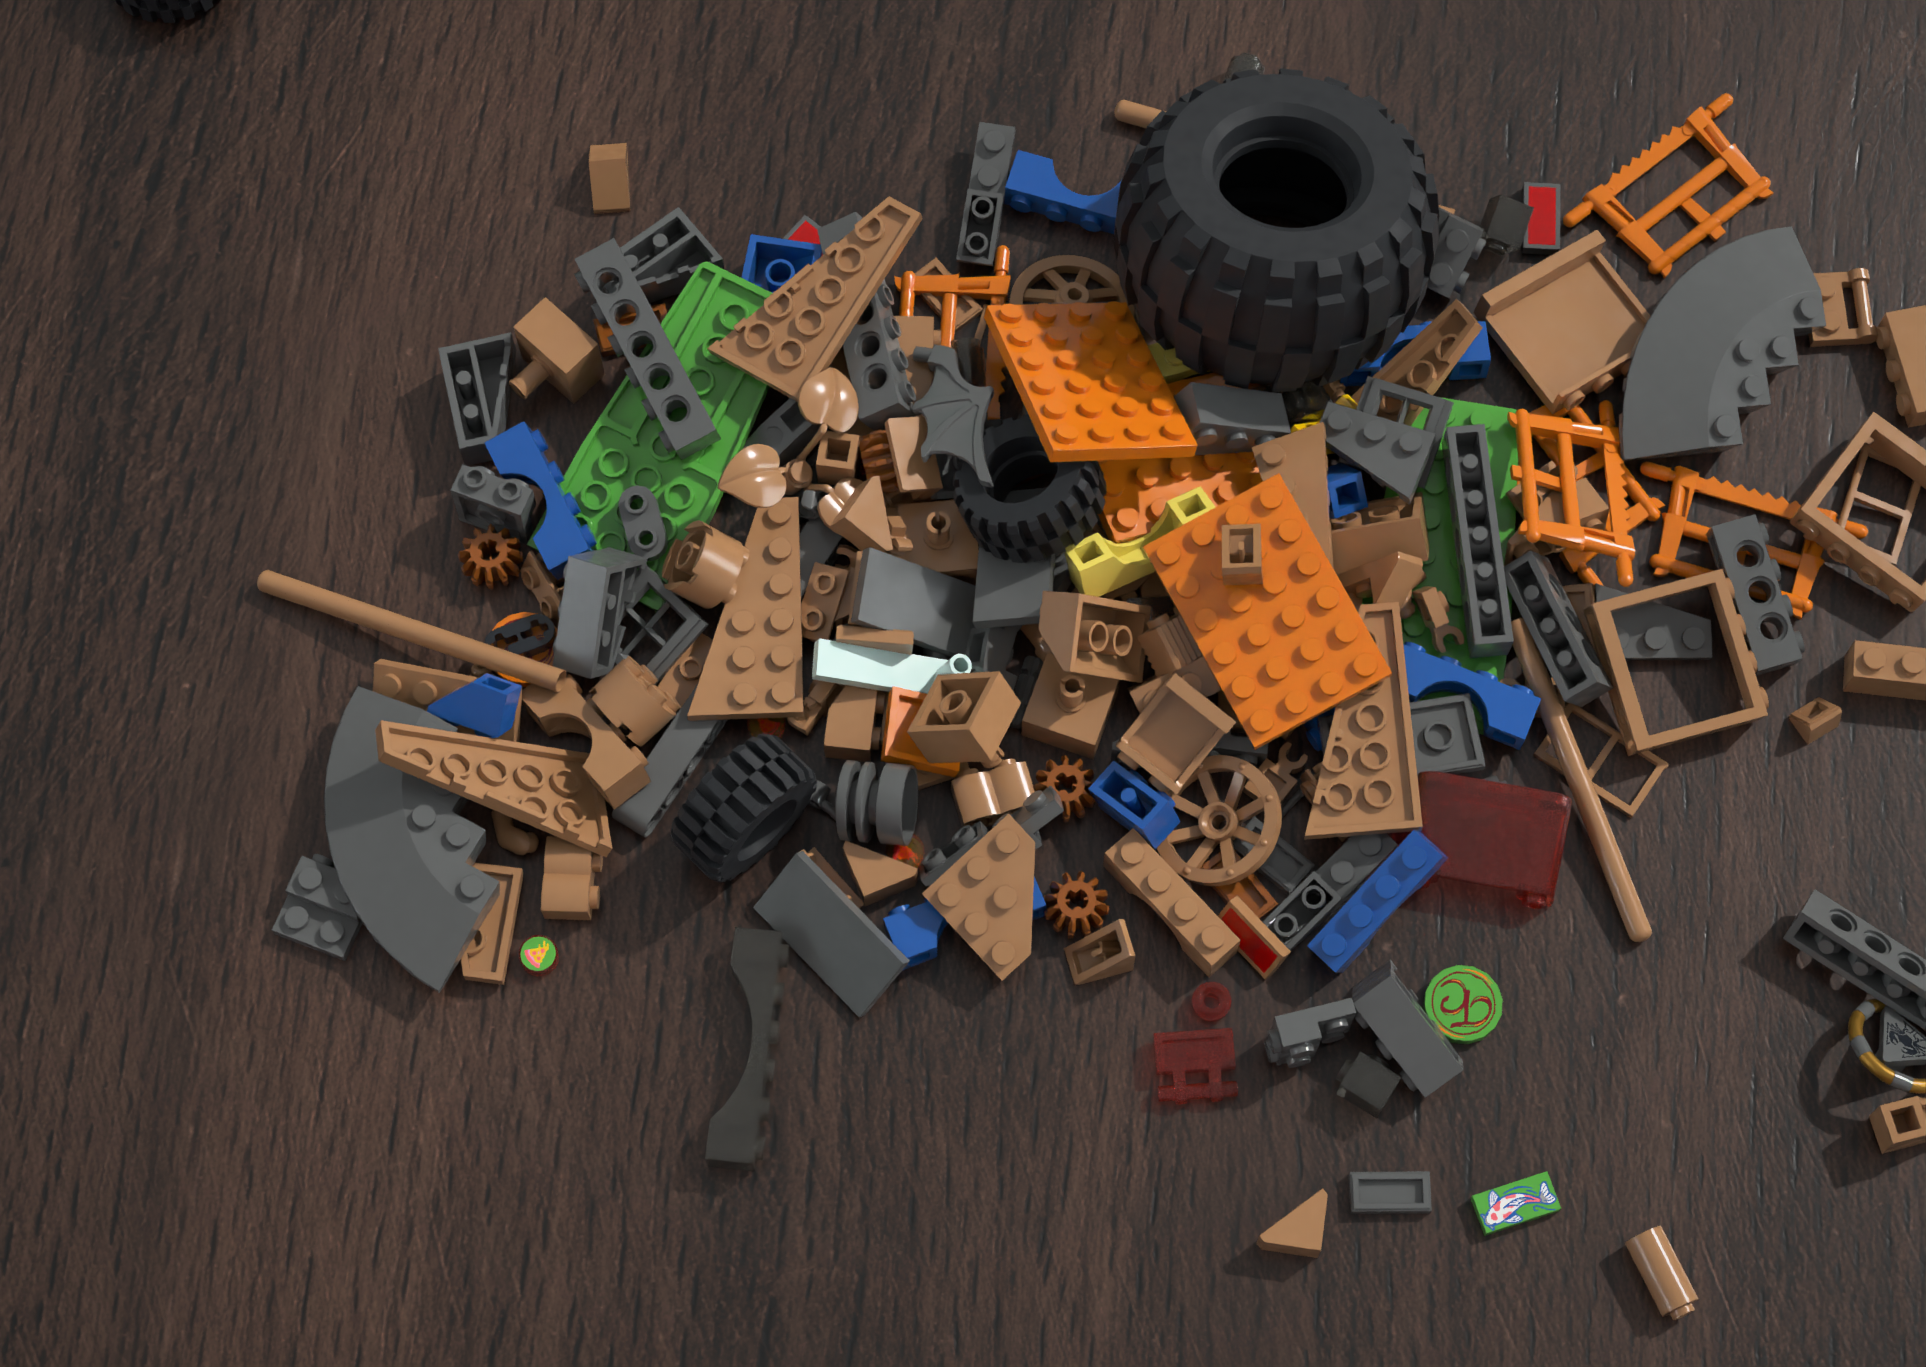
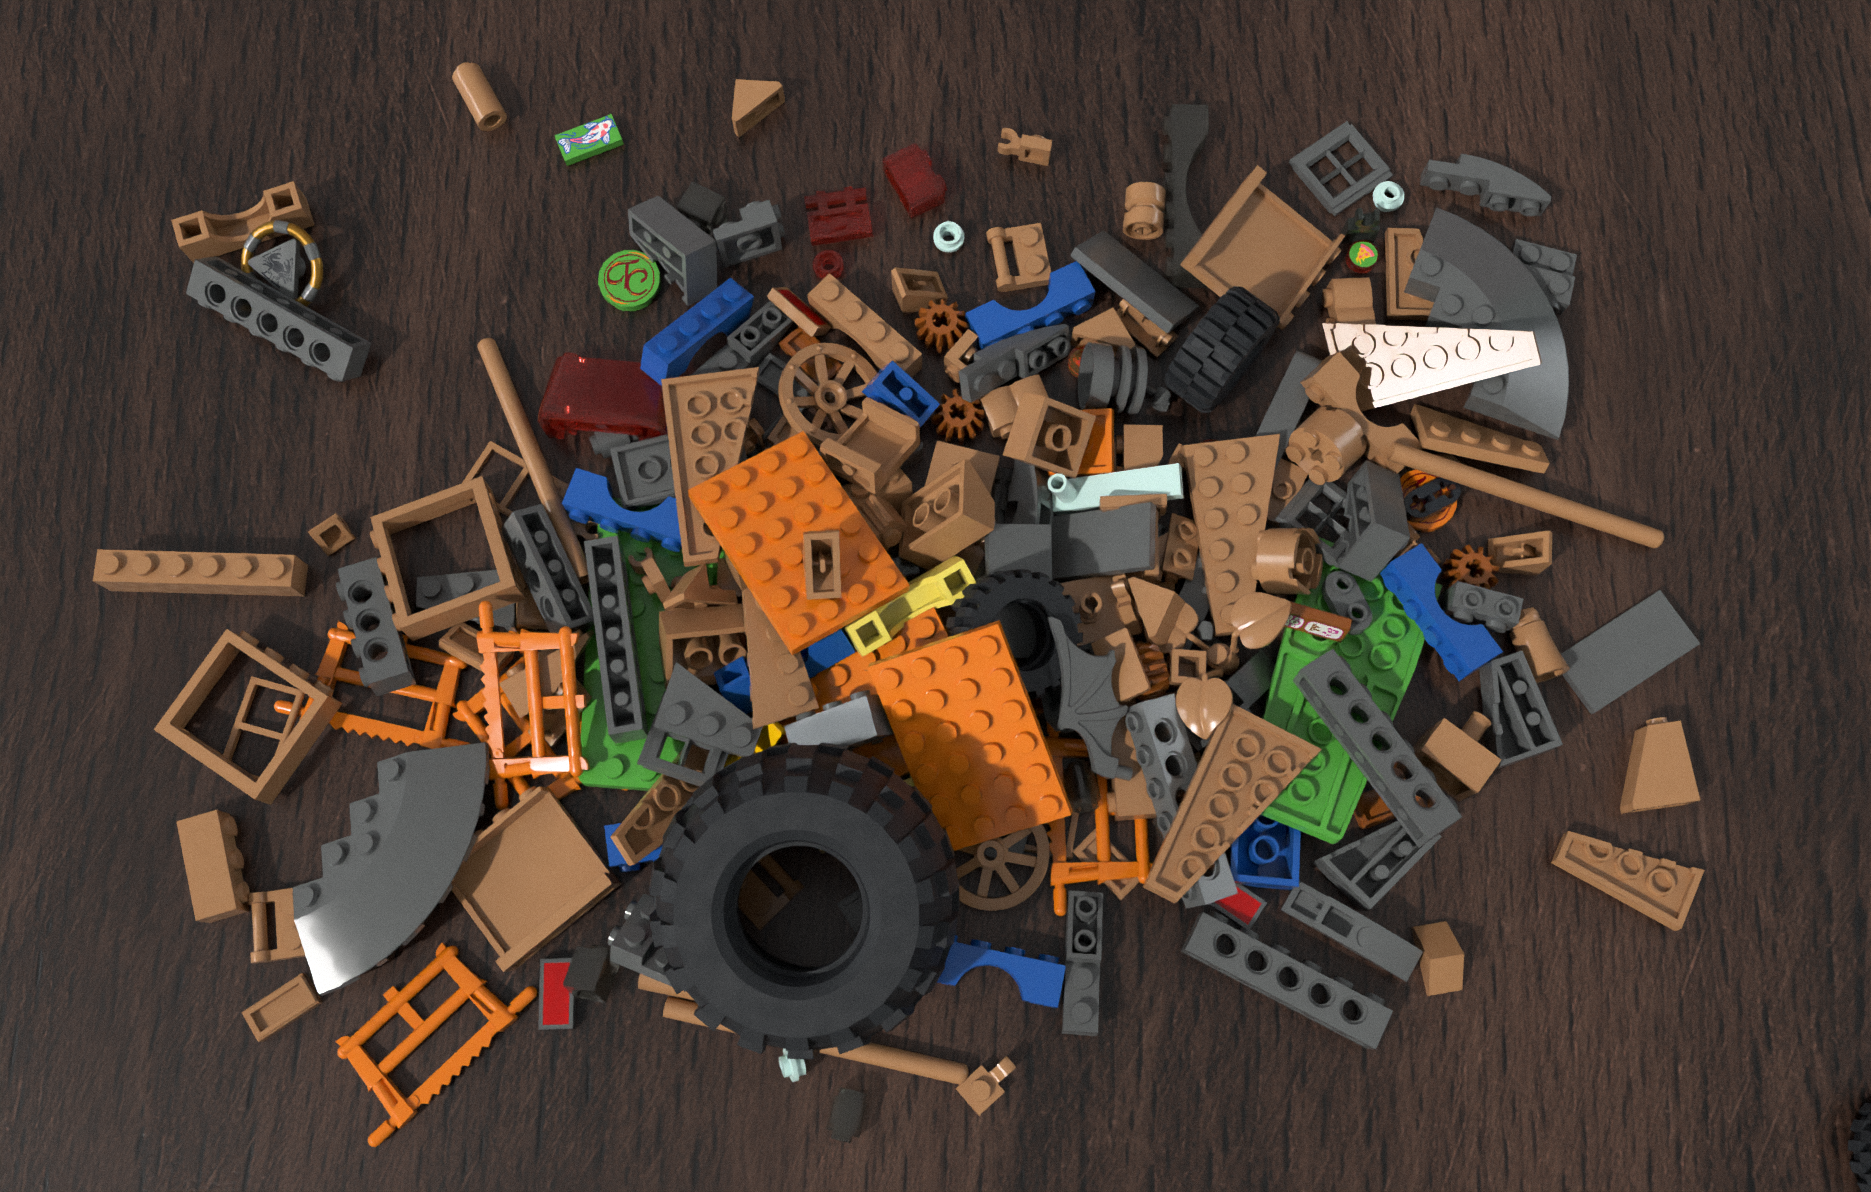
camera: 175 degrees right, 5 degrees up
(332, 462) = (1627, 651): none -> dark grey tile
(333, 330) = (1659, 769): none -> medium nougat slope
(352, 1026) = (1496, 184): none -> dark grey slope
(383, 230) = (1642, 882): none -> medium nougat wing
(428, 572) = (1522, 553): none -> medium nougat slope
(436, 465) = (1538, 646): none -> medium nougat plant
(483, 705) = (1457, 417): blue slope -> none
(493, 1041) = (1385, 203): none -> light aqua plate
(536, 981) = (1361, 227): none -> pearl dark grey plate
(560, 1106) = (1357, 189): none -> dark grey piece
(667, 950) = (1263, 248): none -> medium nougat panel
(687, 495) = (1318, 622): none -> dark orange tile
(698, 197) = (1352, 930): none -> dark grey slope
(767, 147) = (1371, 1015): none -> dark grey brick
(806, 1026) = (1145, 211): none -> medium nougat wheel
(938, 1131) = (1029, 148): none -> medium nougat plate
(956, 995) = (1029, 255): none -> medium nougat plate
(991, 896) = (1011, 308): medium nougat plate -> none
(1050, 866) = (961, 353): none -> medium nougat bracket
(1060, 1014) = (952, 229): none -> light aqua plate
(1094, 1100) = (914, 179): none -> clear red brick
(1096, 98) = (982, 1087): none -> medium nougat plate
(1390, 1192) = (684, 140): dark grey tile -> none
(1646, 571) = (462, 643): none -> medium nougat tile
(1833, 230) = (282, 1007): none -> medium nougat tile

